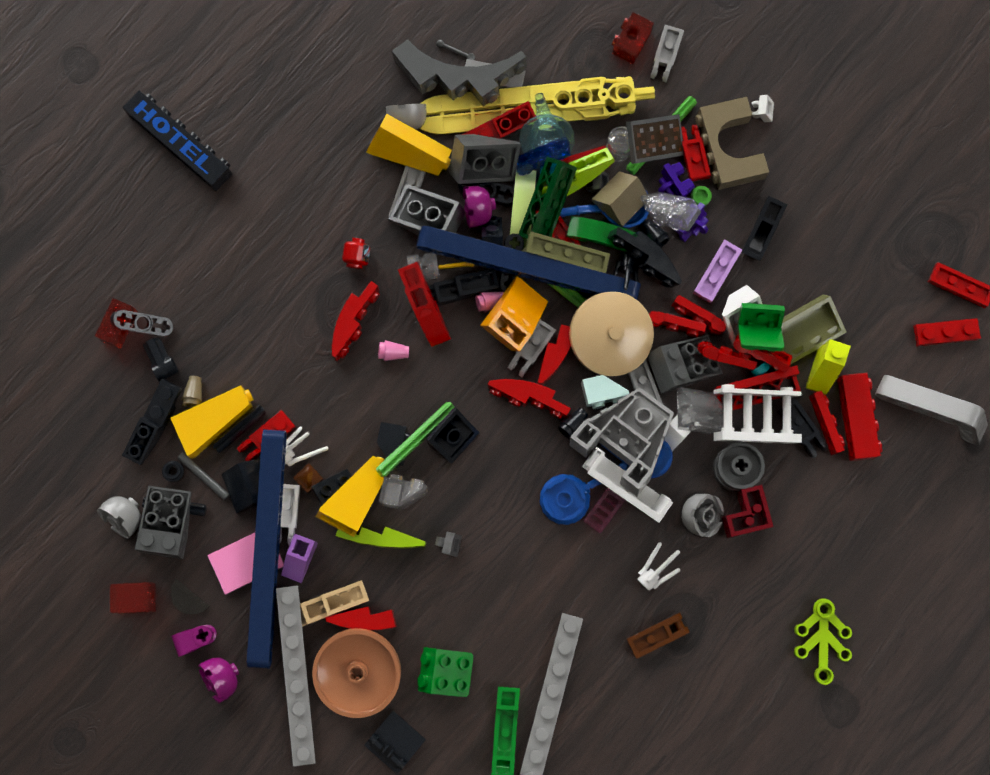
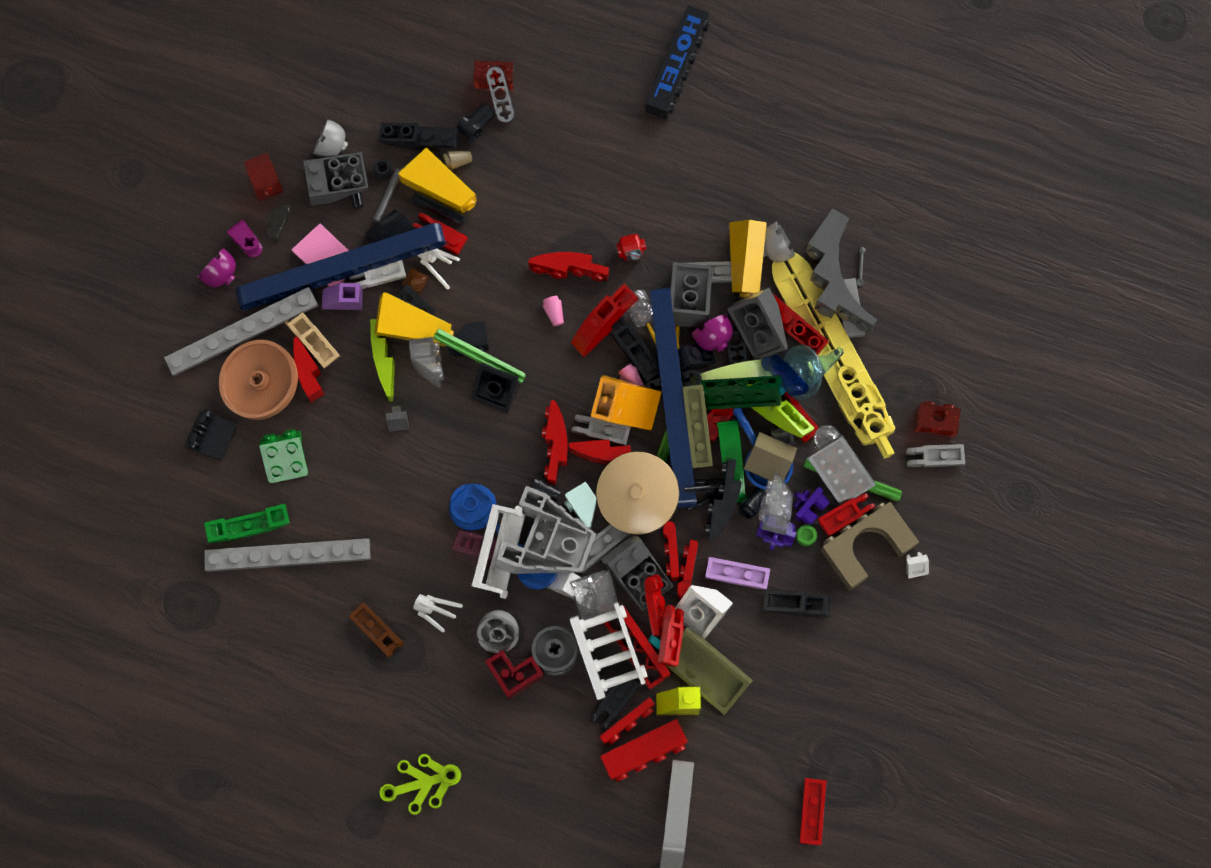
camera: 75 degrees right, 5 degrees down
(761, 327) = (690, 623): green bracket -> none
(947, 332) = (761, 813): red plate -> none

